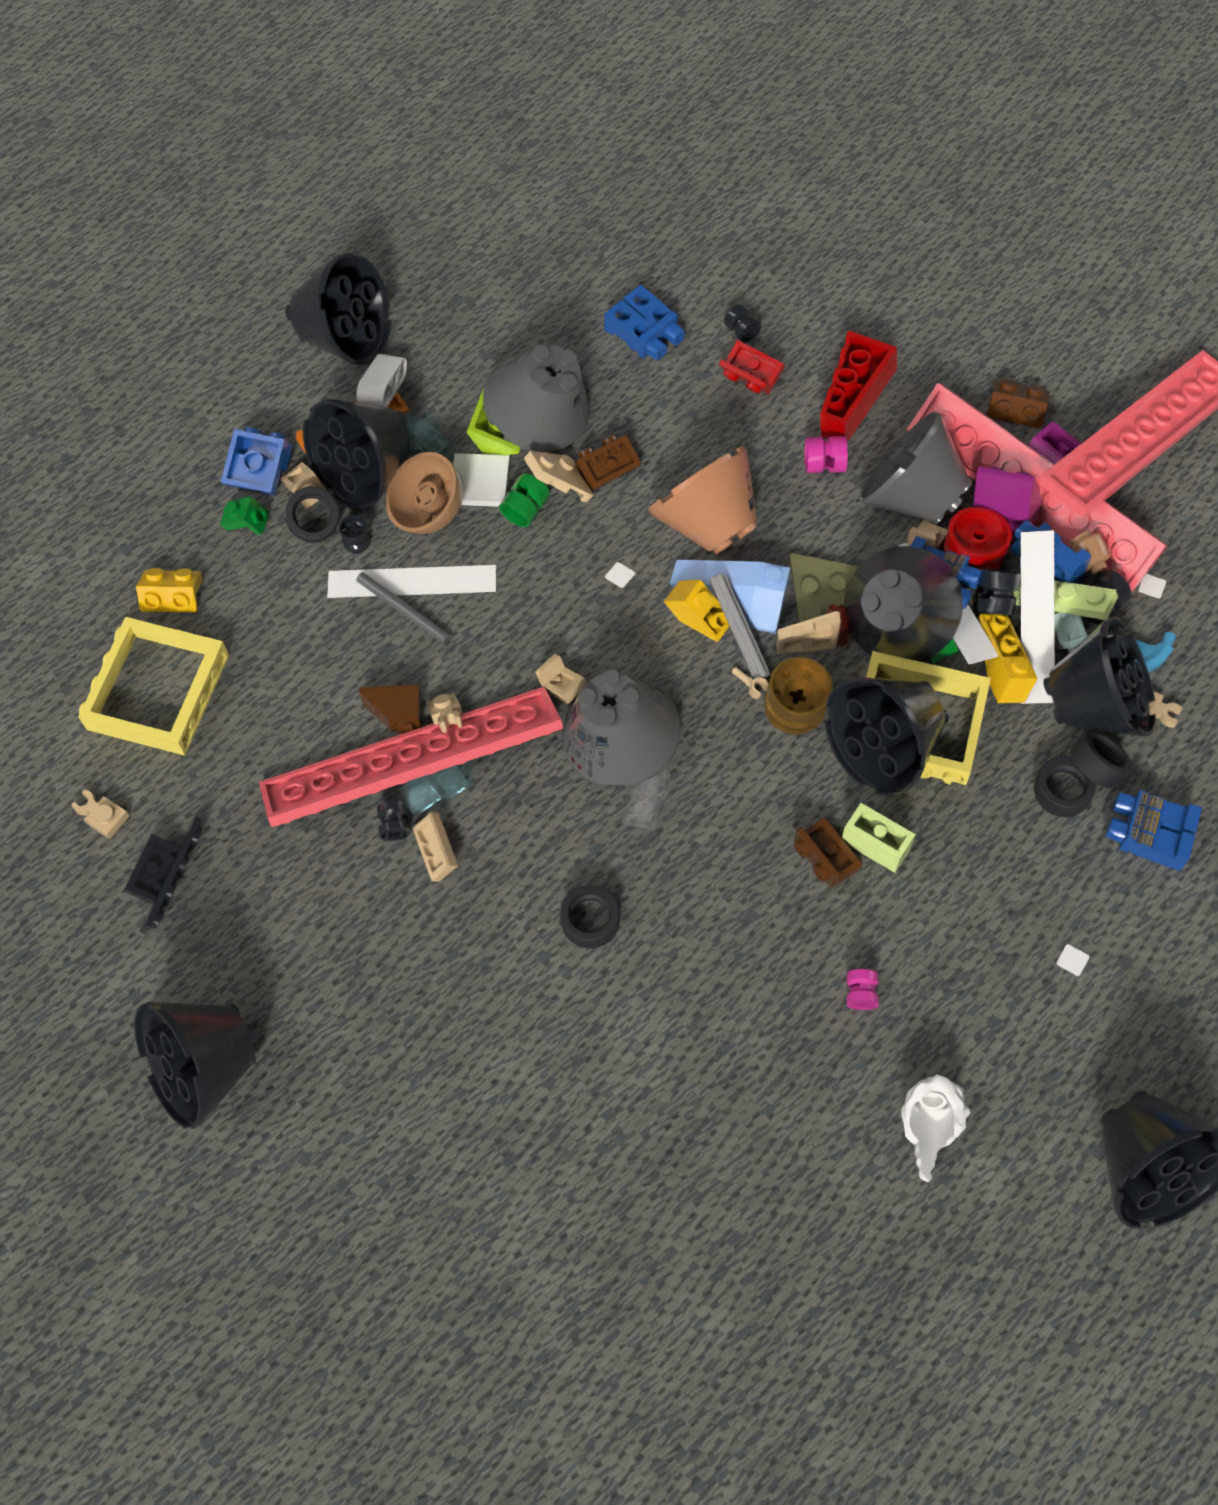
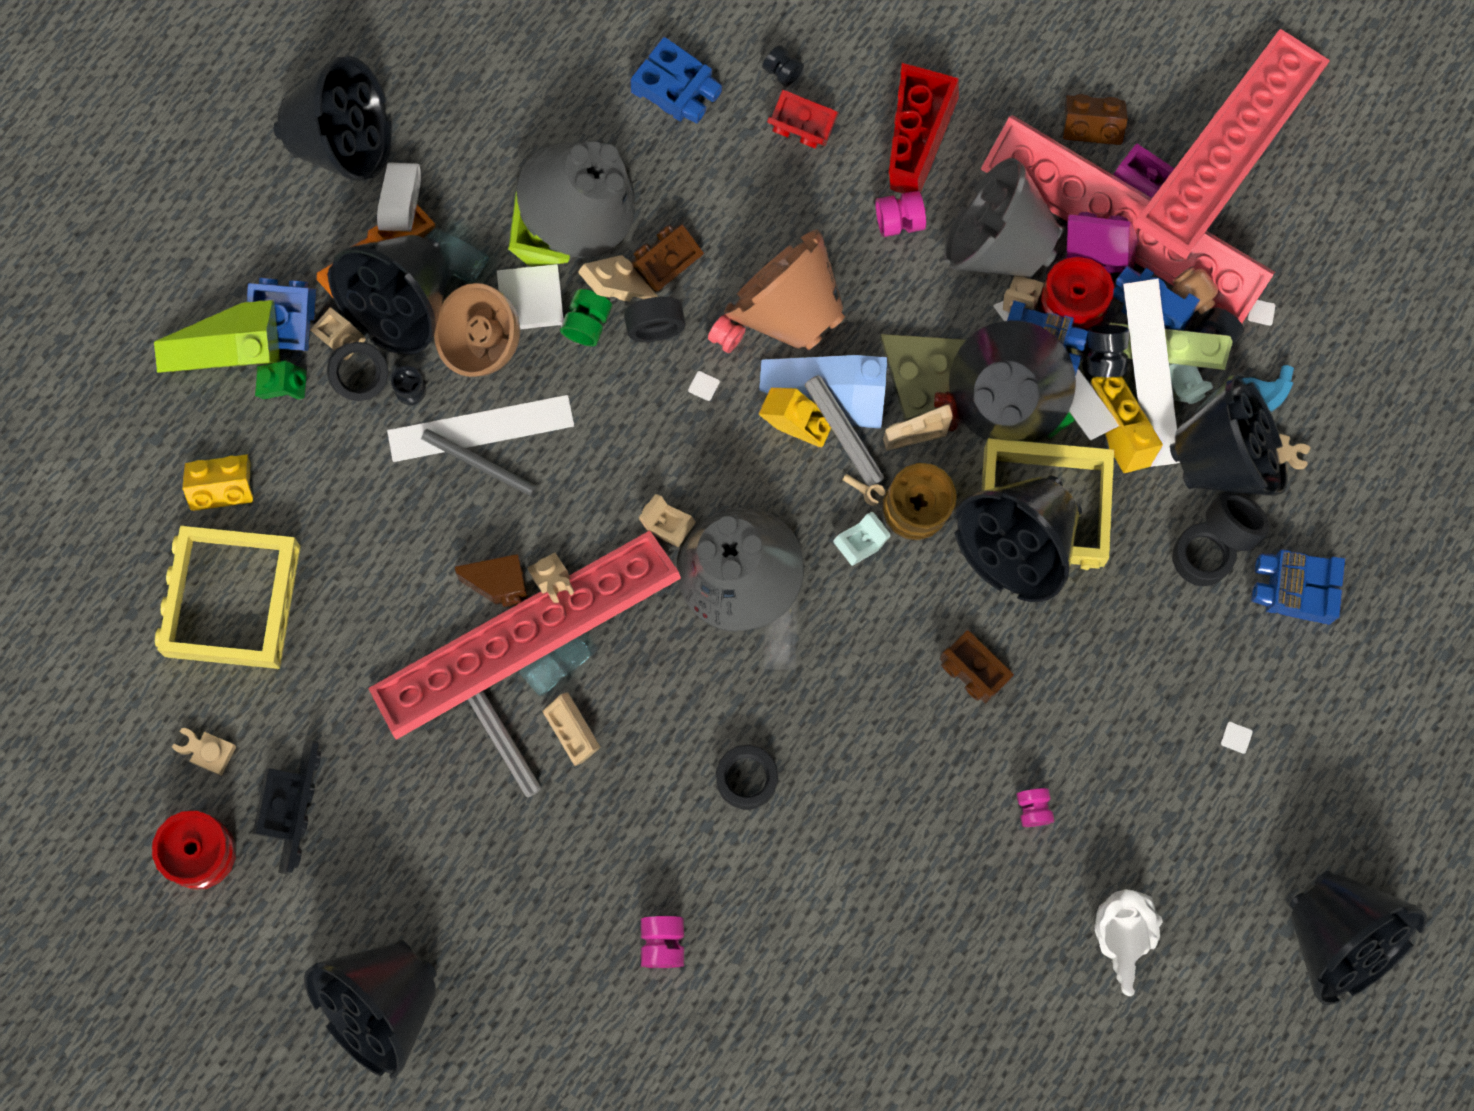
camera: 15 degrees left, 10 degrees up
(66, 894) = (191, 869): none -> red wheel
(207, 474) = (227, 339): none -> lime wedge
(371, 850) = (505, 744): none -> light grey axle
(393, 821) = (521, 707): black wheel -> none
(477, 1056) = (662, 942): none -> dark pink wheel
(585, 497) = (654, 319): none -> black tyre
(648, 531) = (726, 333): none -> coral wheel
(739, 724) = (862, 539): none -> light aqua bracket
(878, 837) = (1026, 644): yellowish green brick -> none

